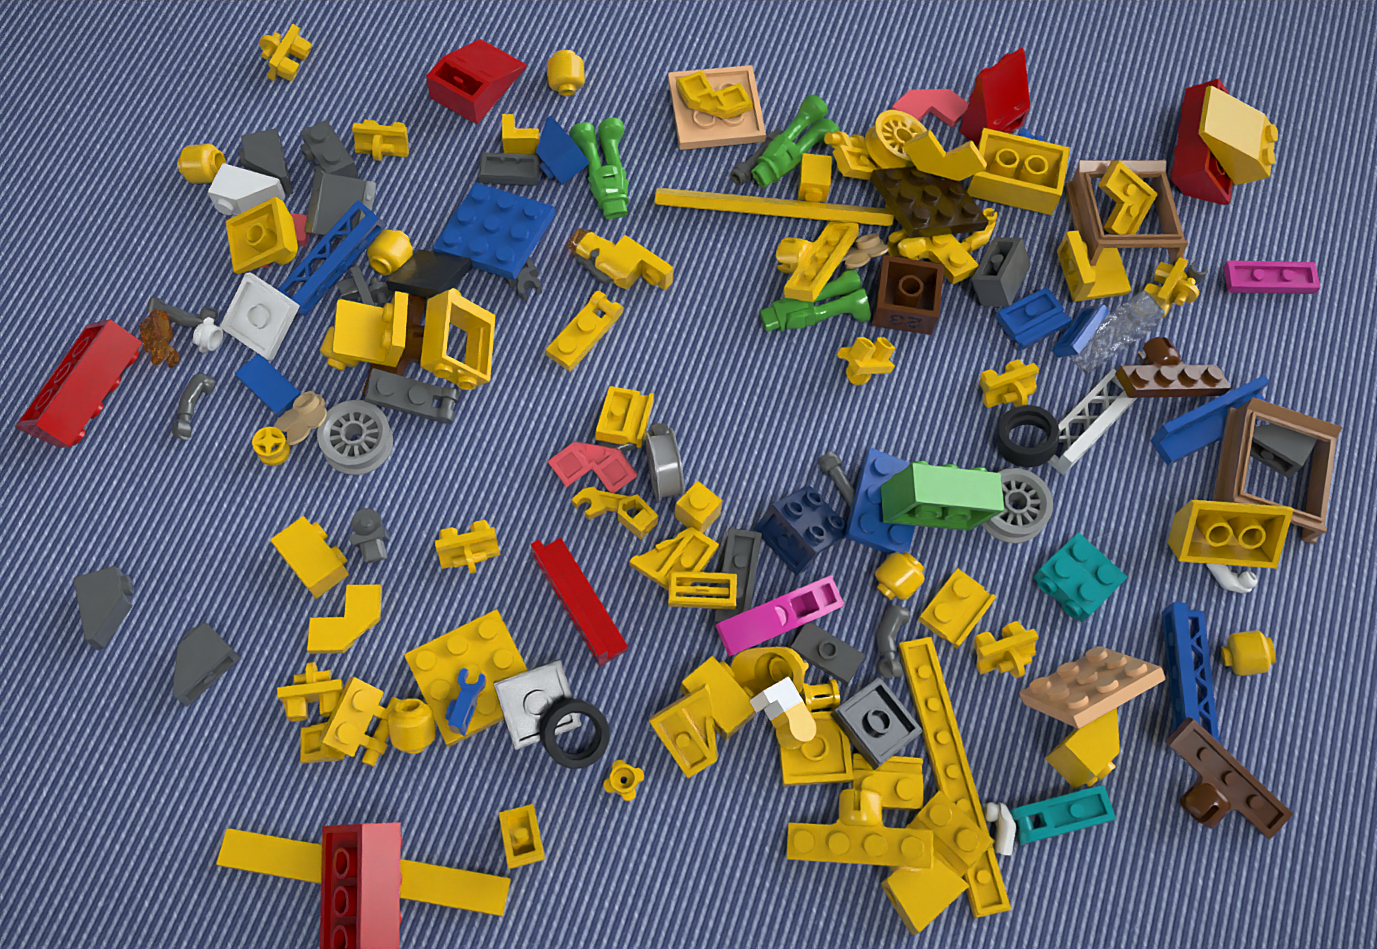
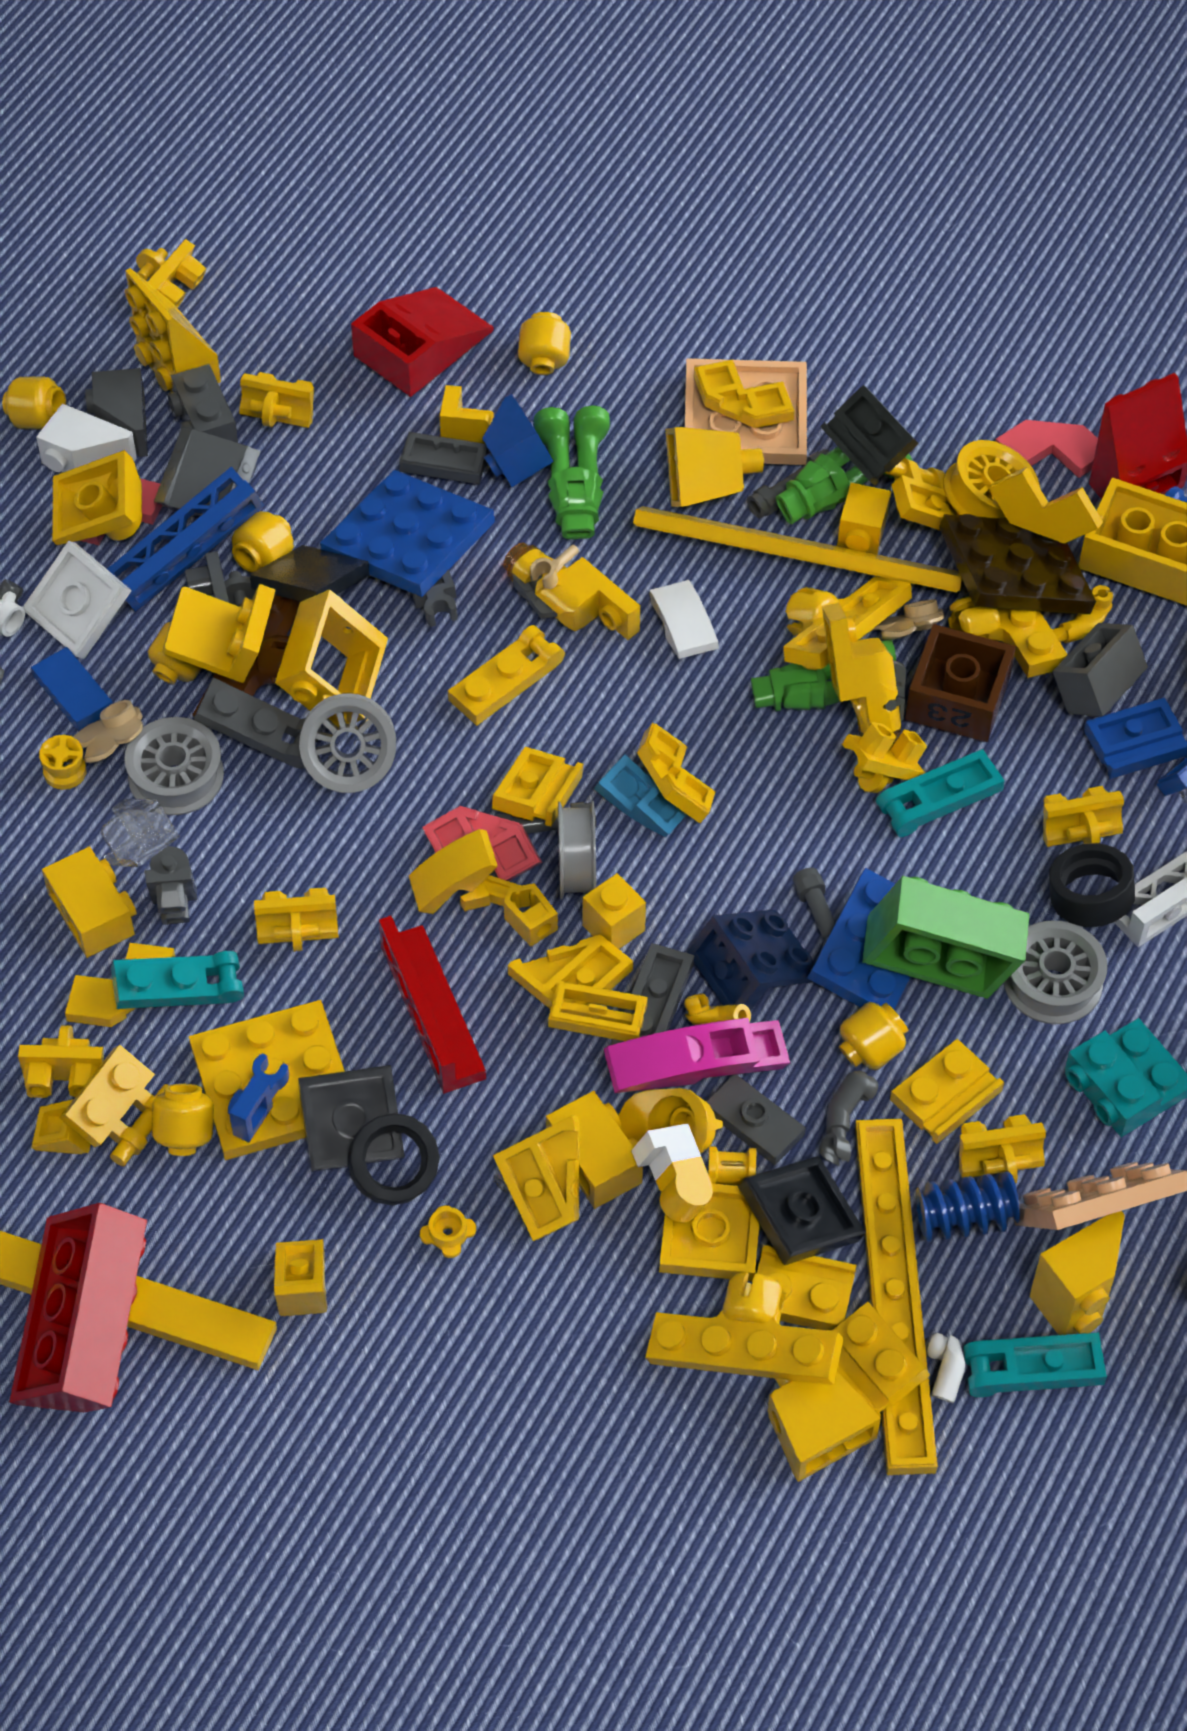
camera: 15 degrees right, 10 degrees down
(290, 99) = (164, 334): none -> yellow slope
(337, 500) = (137, 832): none -> clear panel
(386, 612) = (176, 981): none -> teal plate
(481, 432) = (320, 770): none -> light grey wheel
(576, 492) = (456, 866): none -> yellow slope
(606, 245) = (549, 566): none -> tan hand
(699, 152) = (707, 464): none -> yellow torso
(701, 413) = (639, 797): none -> dark azure slope
(704, 271) = (684, 619): none -> white slope
(710, 382) = (663, 759): none -> yellow tile
(785, 576) = (701, 1013): none -> yellow arm
(812, 117) = (869, 435): none -> pearl dark grey plate
(844, 301) = (864, 673): none -> yellow plate
(908, 378) = (940, 792): none -> teal plate
(992, 698) = (967, 1205): none -> blue piece

